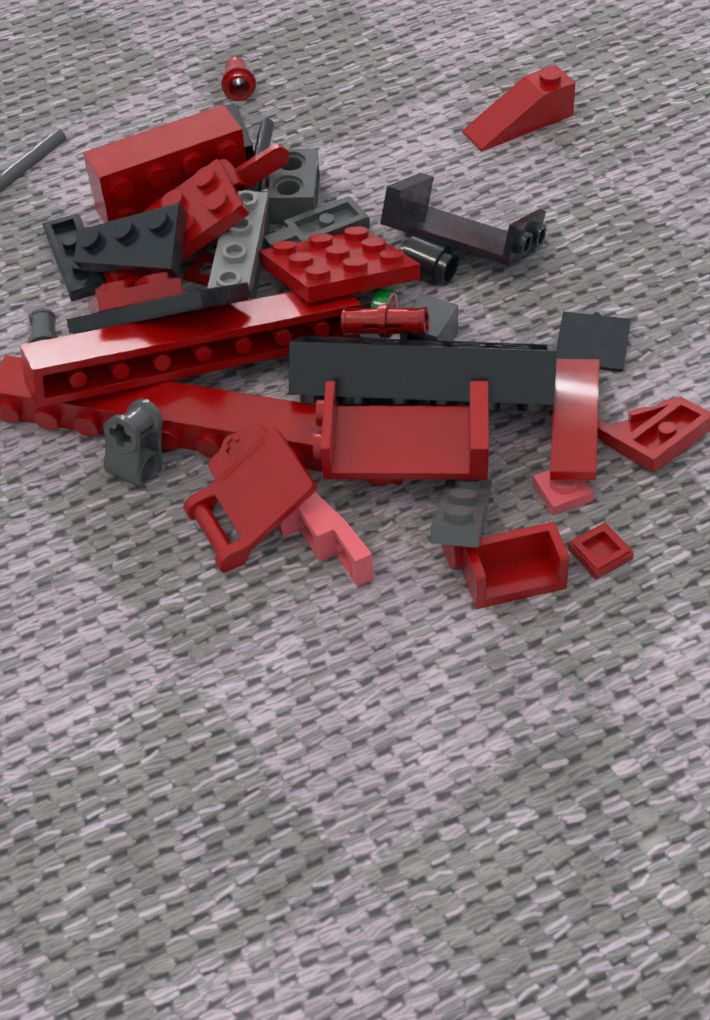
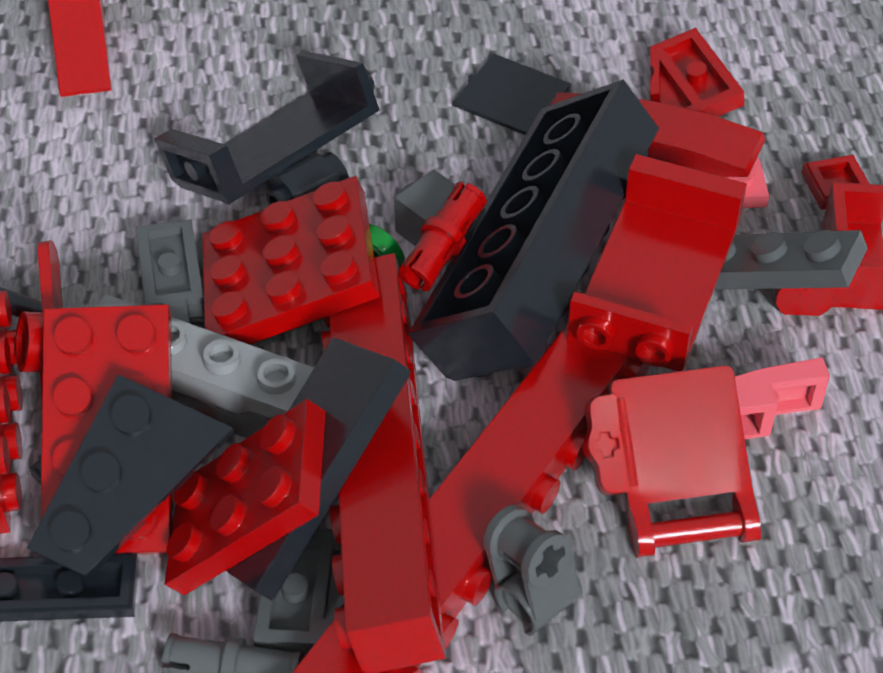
camera: 75 degrees left, 0 degrees up
(294, 186) = (86, 269): dark grey brick -> none

